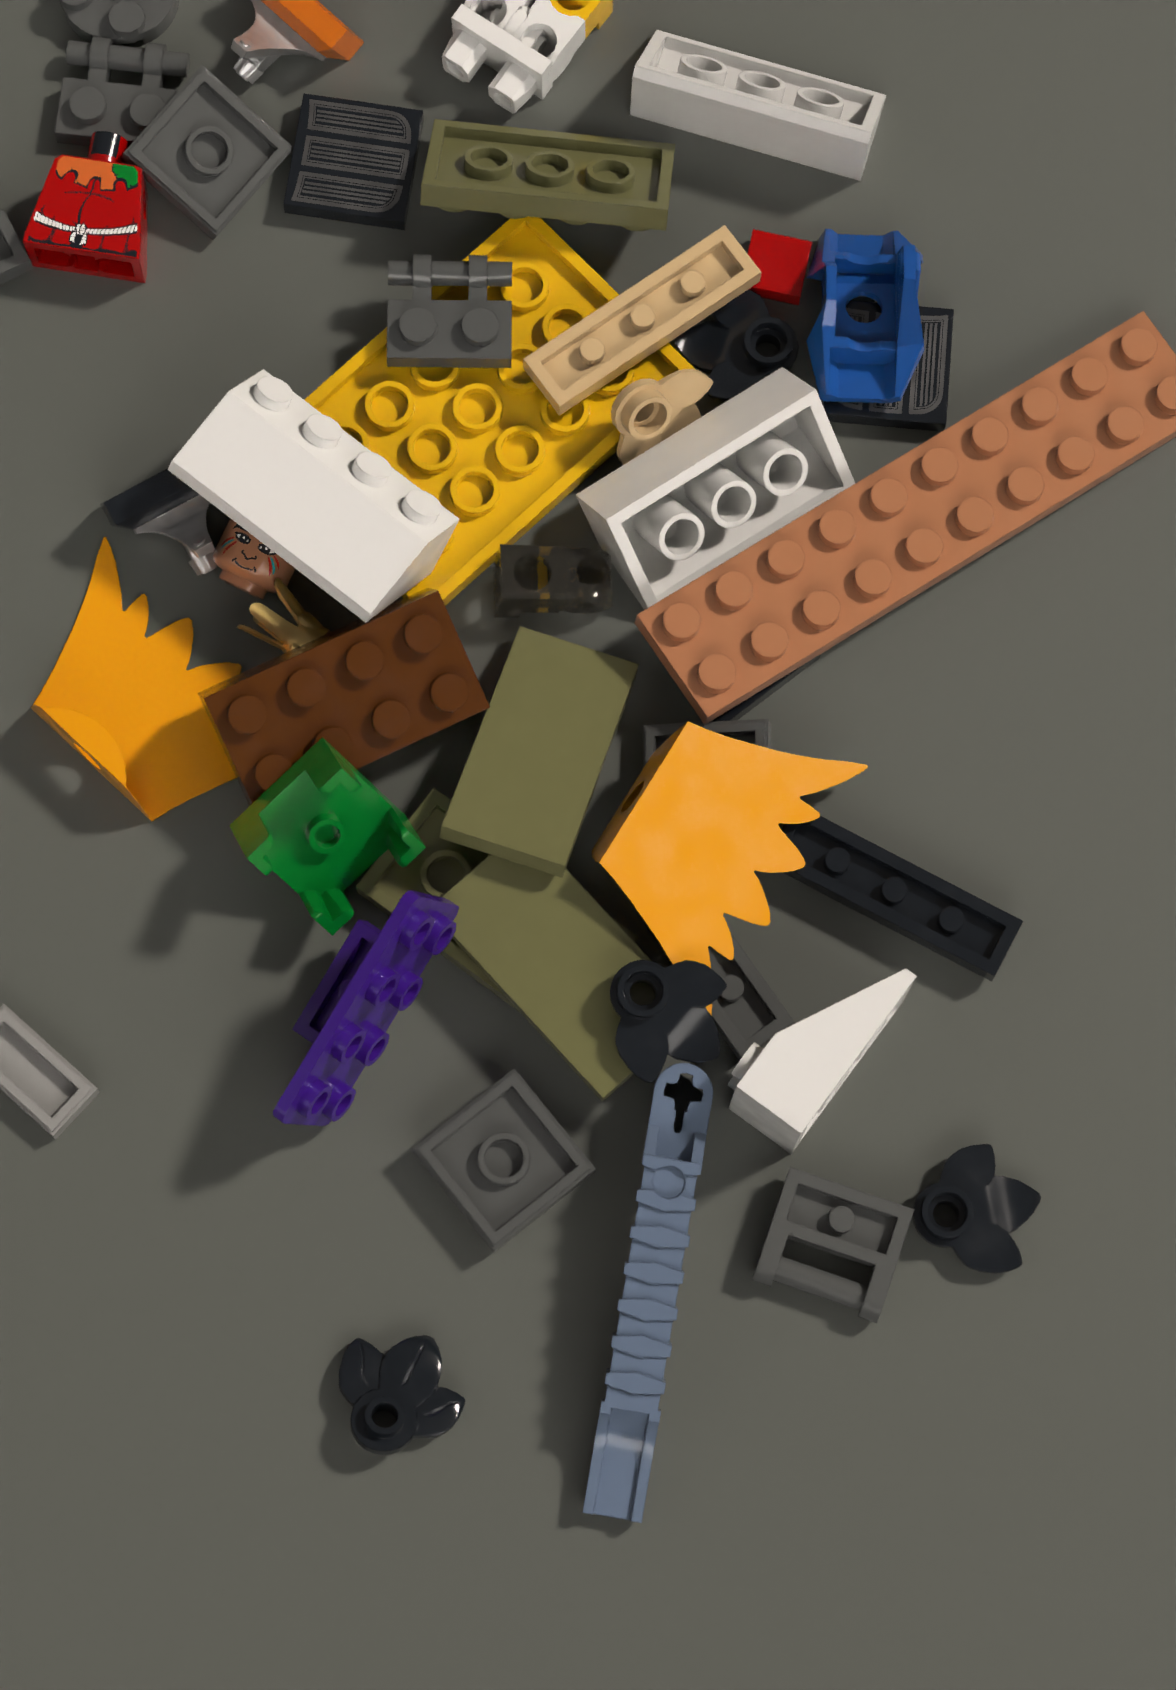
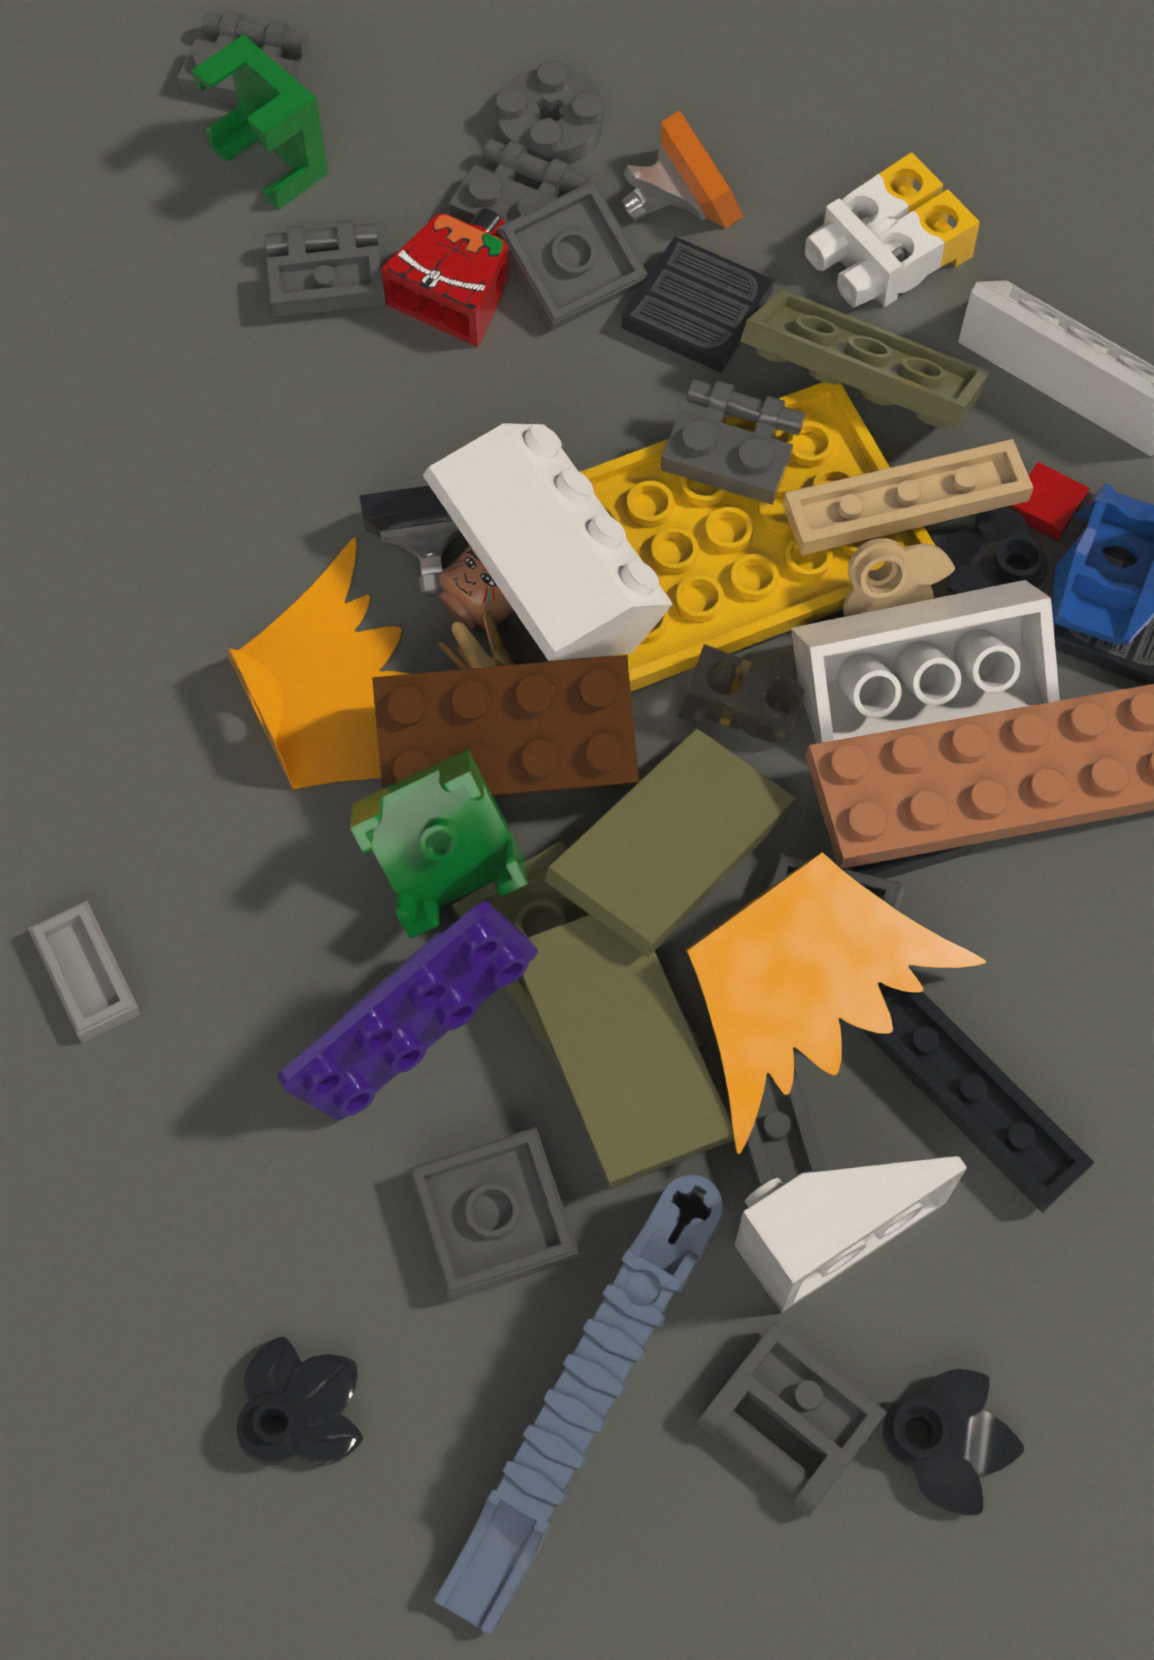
camera: 25 degrees right, 10 degrees down
(673, 1022) = (705, 1132): black plate -> none

